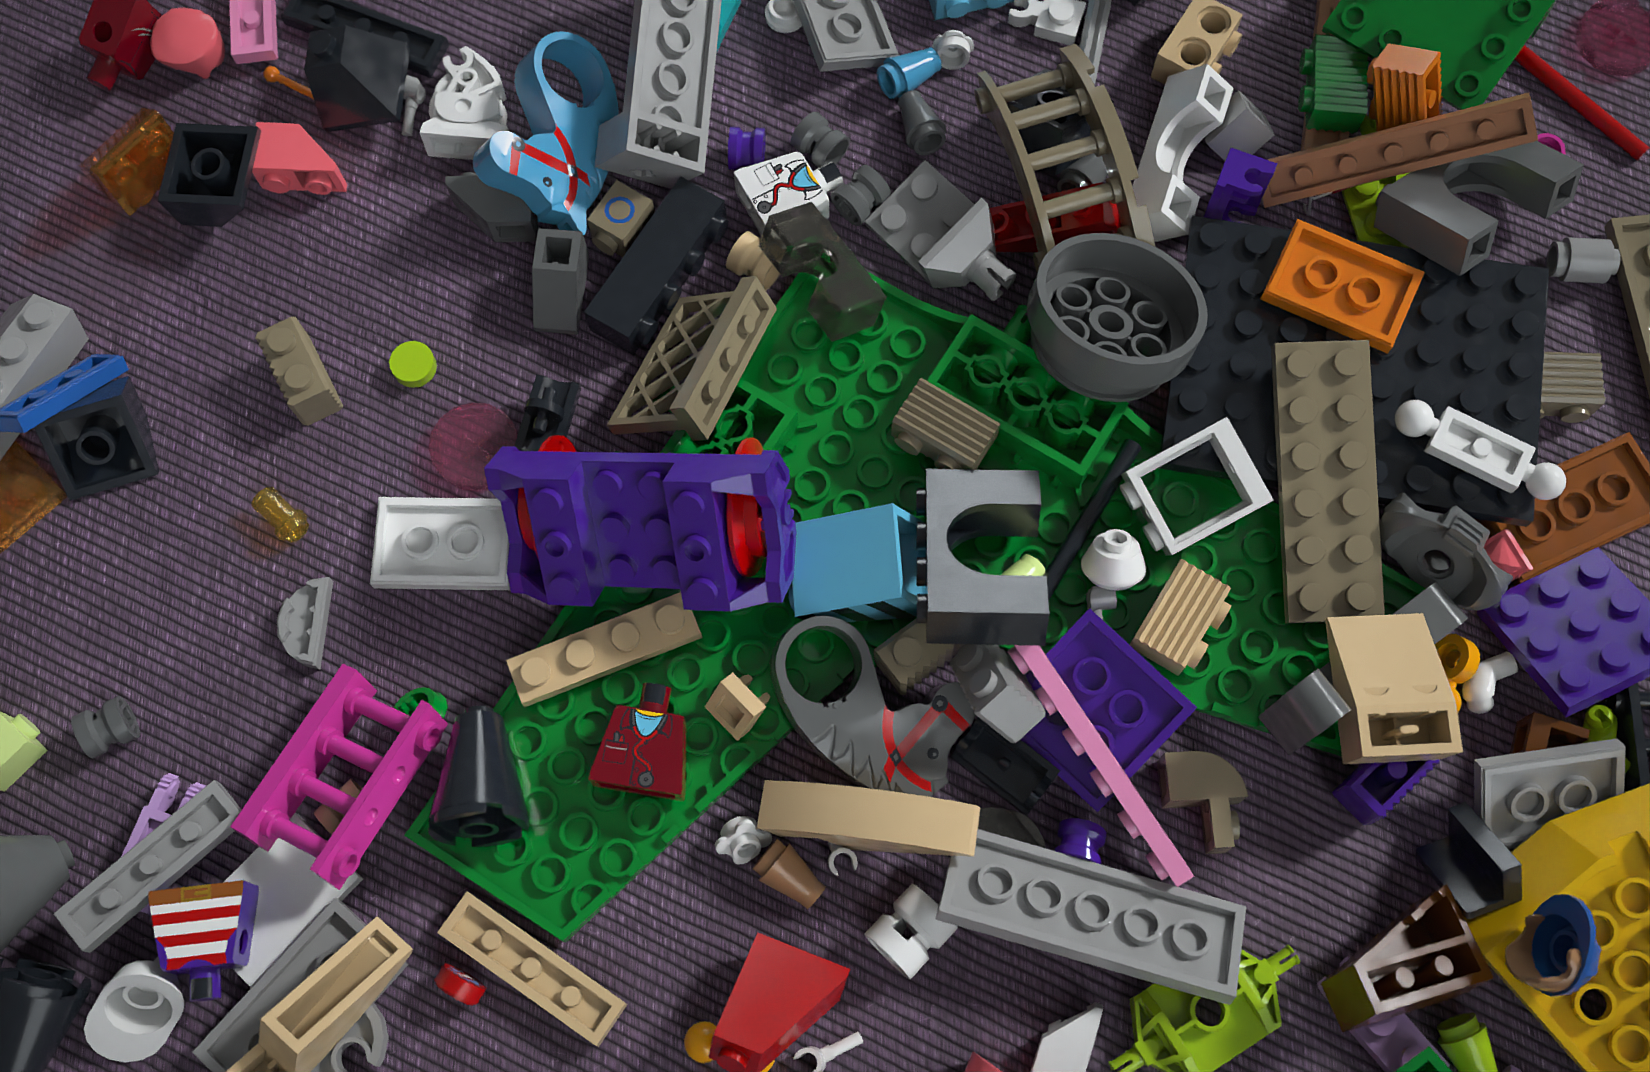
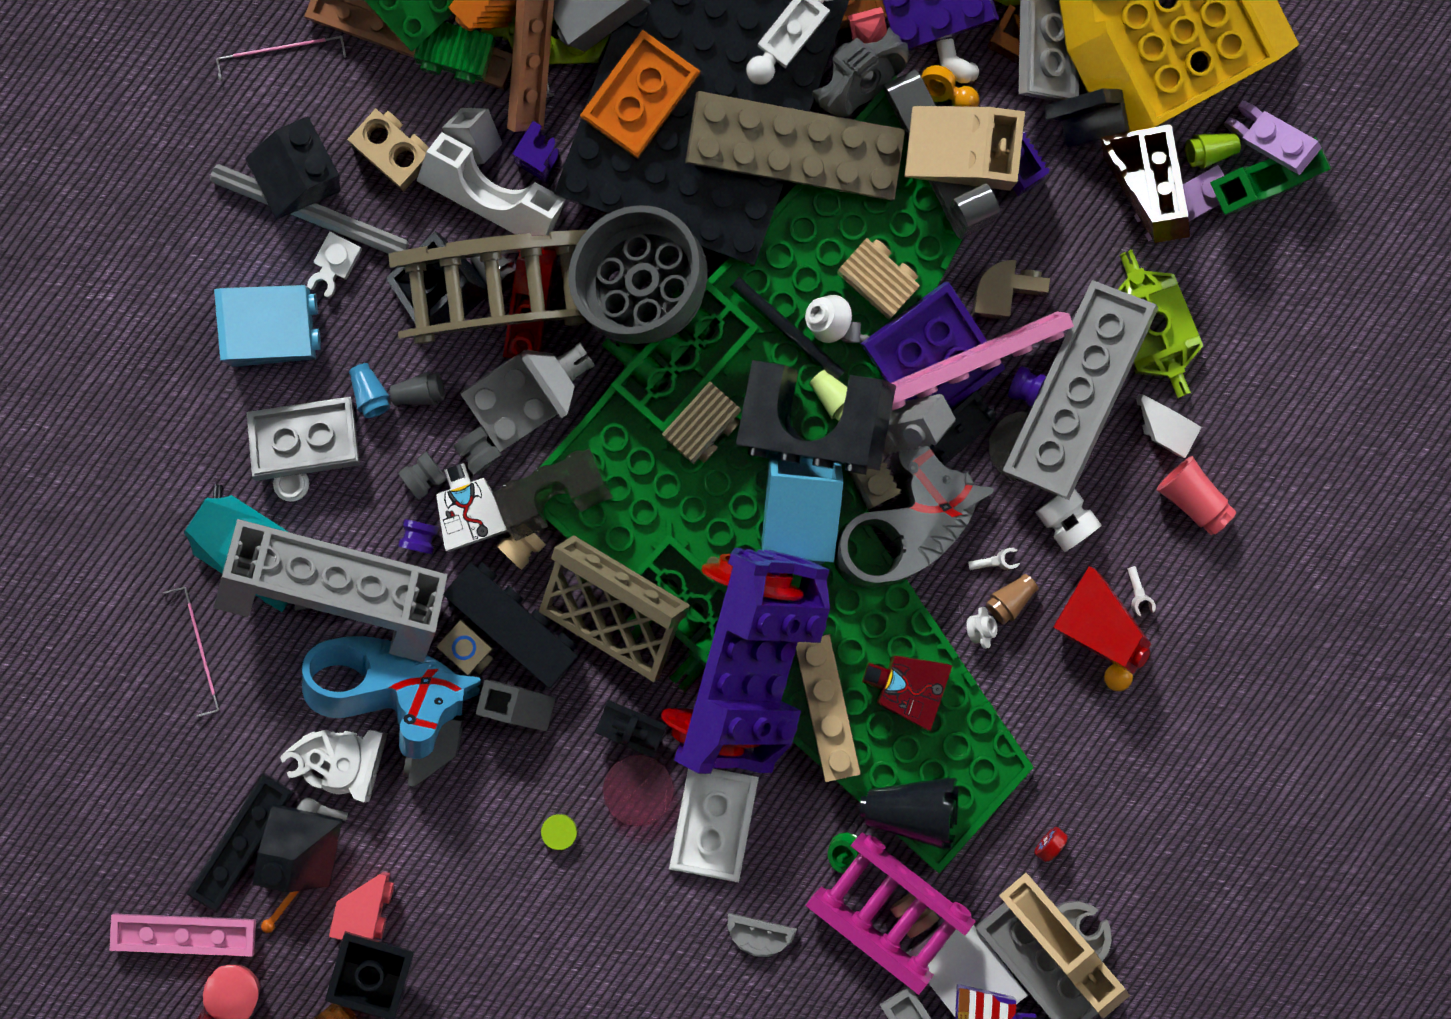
camera: 85 degrees left, 15 degrees up
(287, 521) = (670, 946): clear yellow pin -> none
(299, 371) = (554, 920): dark tan brick -> none
(532, 969) = (1047, 792): tan plate -> none
(736, 705) = (889, 616): tan tile -> none
(869, 818) = (989, 534): tan slope -> none
(953, 49) = (353, 350): white plate -> none
(1238, 467) = (813, 237): white window -> none
(1556, 947) = (1164, 83): blue piece -> none

